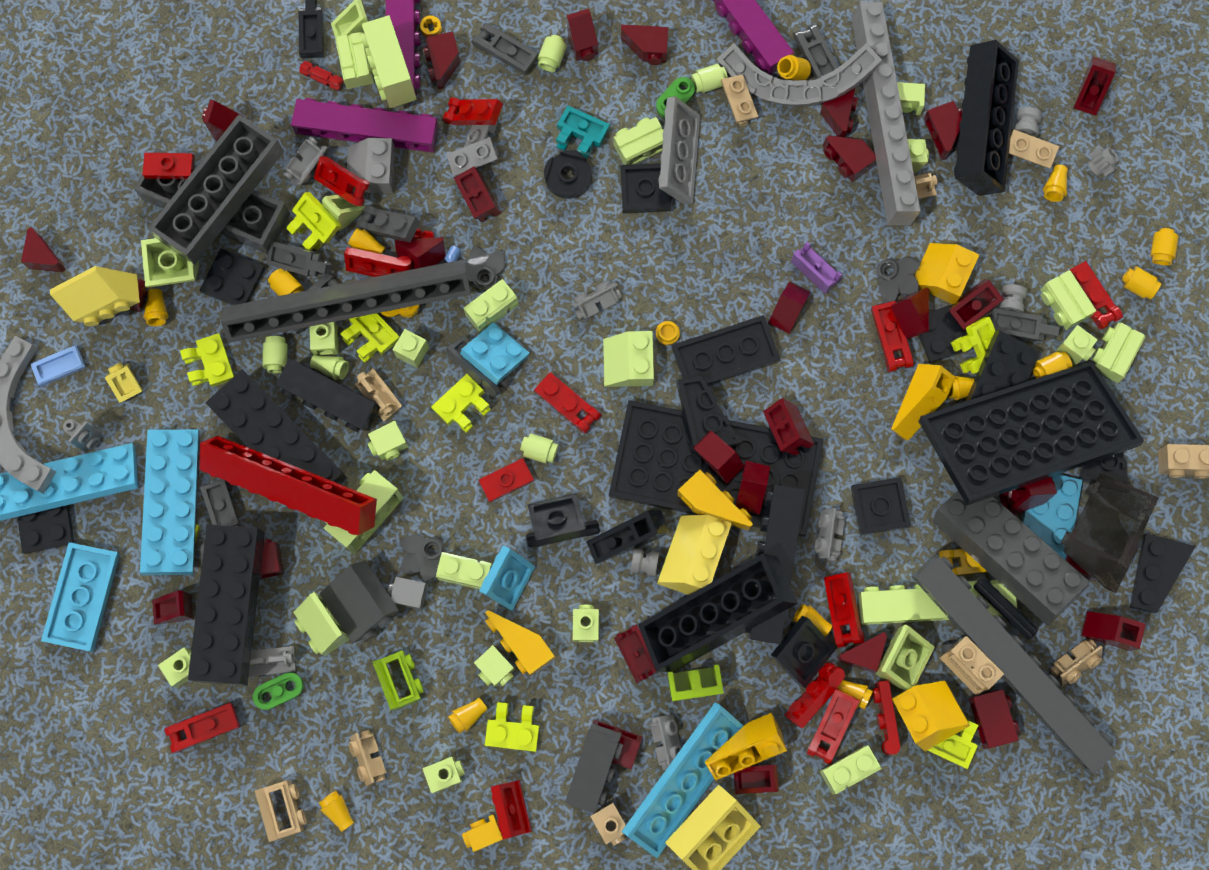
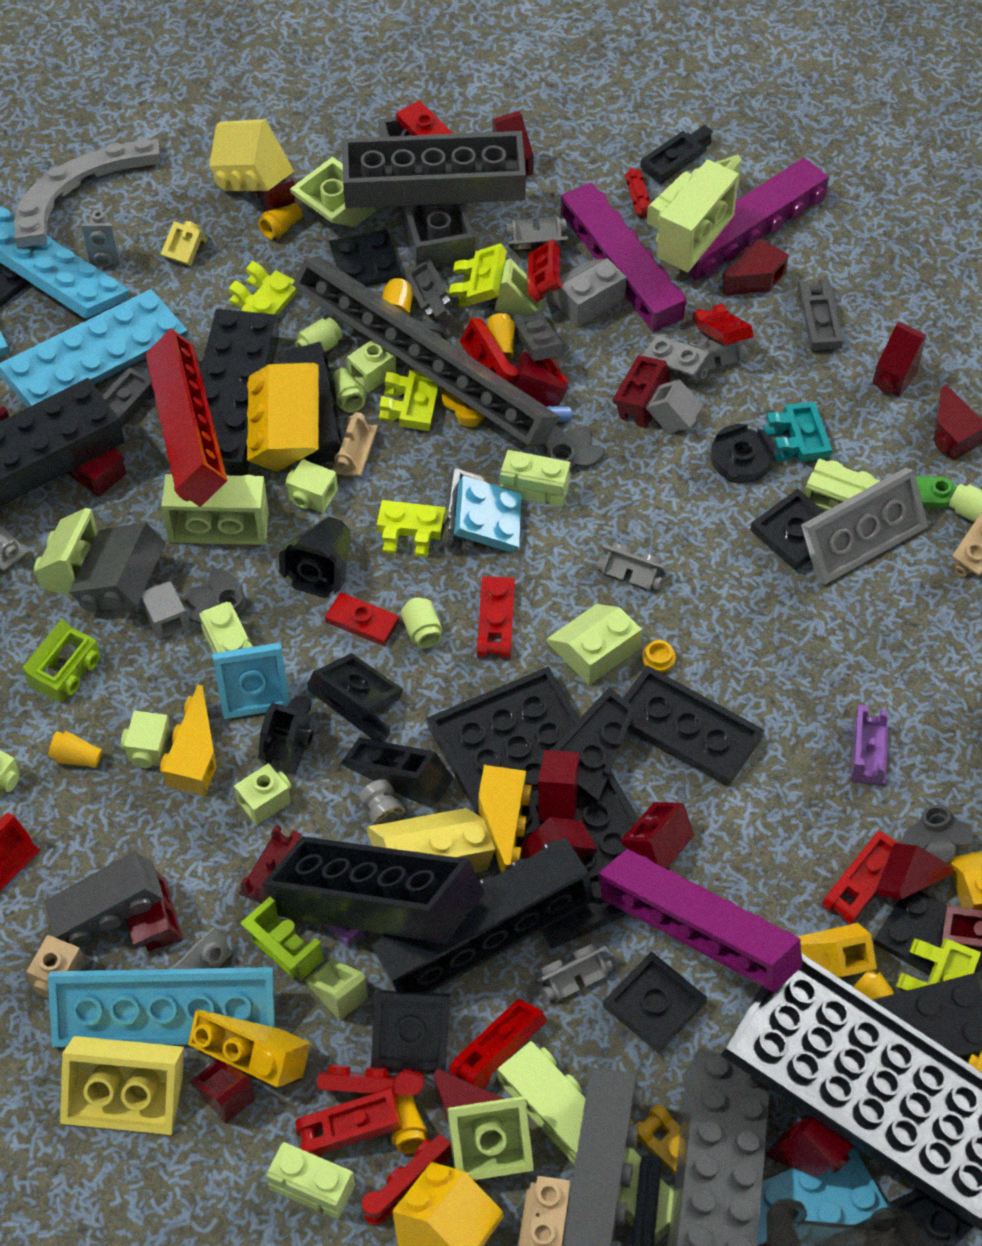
camera: 50 degrees right, 20 degrees down
(38, 254) = (254, 99): dark red slope -> none
(58, 365) = (157, 189): light blue tile -> none
(329, 421) = (282, 414): none -> yellow slope
(411, 348) = (426, 440): yellowish green brick -> none
(436, 23) = (780, 235): yellow bush -> none
(446, 473) = (317, 554): none -> black cone
(507, 187) = (674, 406): none -> light grey brick
(511, 734) = (85, 808): neon yellow plate -> none
(552, 53) = (856, 354): yellowish green brick -> none
(557, 581) = (286, 733): none -> black hinge
(741, 671) = (338, 987): none -> yellowish green slope
(789, 307) = (799, 750): dark red slope -> none
(809, 612) = (459, 1021): yellow cone -> none
(871, 449) = (701, 920): none -> magenta brick

